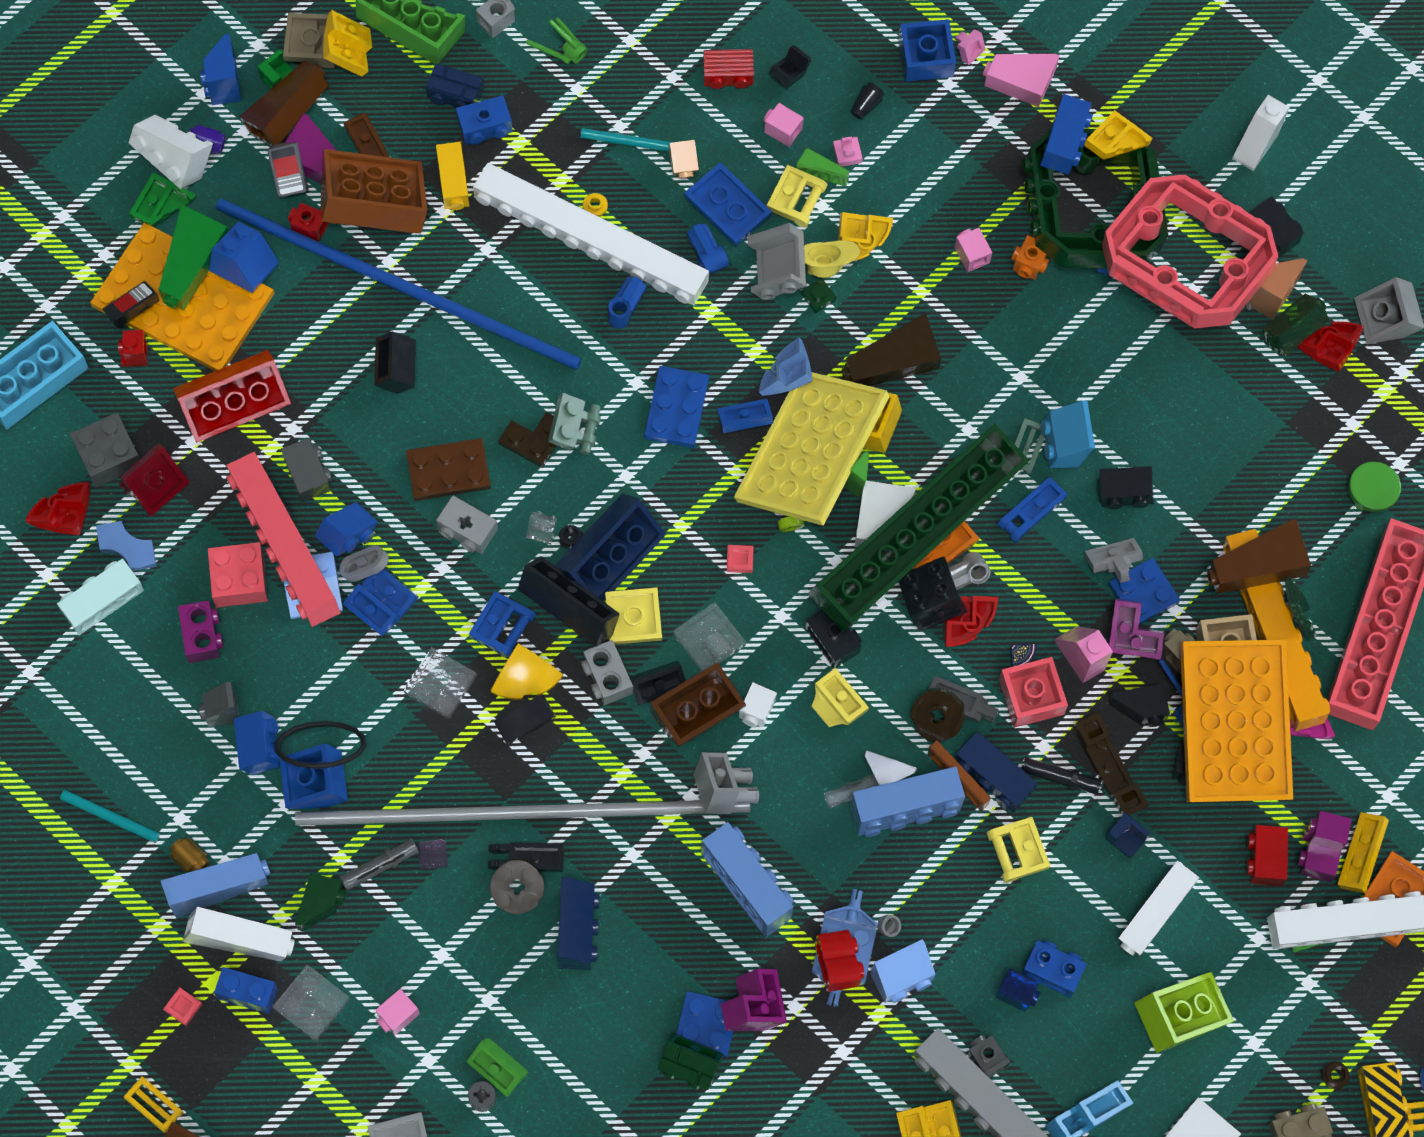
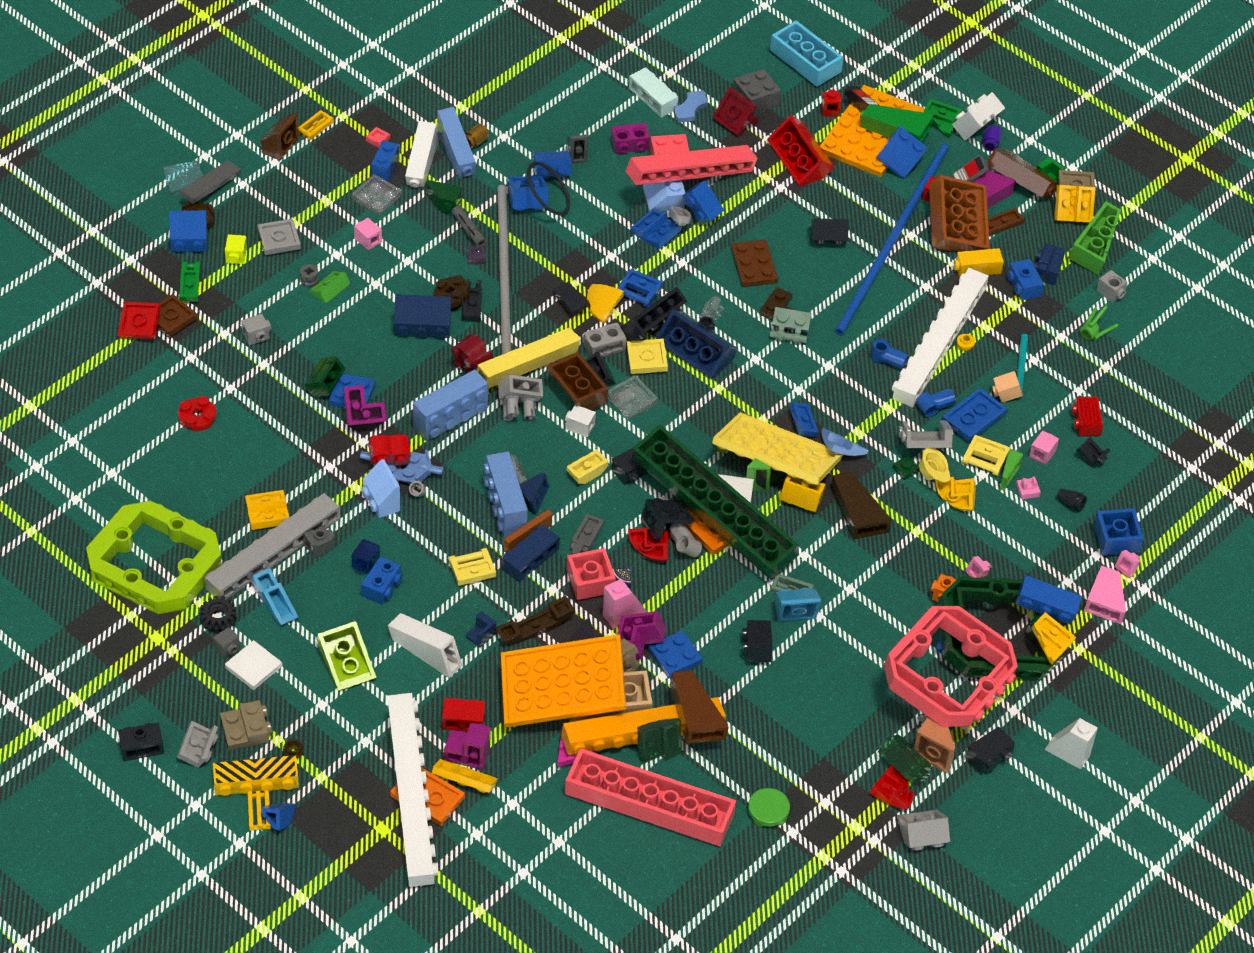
camera: 90 degrees right, 20 degrees down
(62, 511) = (714, 76): red brick -> none
(110, 816) = (505, 102): teal bar -> none
(221, 74) = (1042, 139): blue slope -> none
(306, 470) = (748, 188): dark grey brick -> none
(440, 683) = (596, 256): clear plate -> none
(458, 514) = (711, 269): light grey brick -> none
(649, 852) = (470, 353): none -> dark red brick
(651, 774) = (530, 356): none -> light yellow brick
(676, 407) = (810, 385): blue plate -> none
(739, 559) = (693, 418): coral tile -> none
(924, 720) = (573, 519): dark brown plate -> none
(973, 249) = (951, 557): bright pink brick -> none
(991, 219) = (978, 568): none -> bright pink tile
(1033, 509) = (739, 586): blue plate -> none
(1062, 776) = (525, 600): black pin -> none
(1115, 558) = (700, 631): light grey hinge -> none

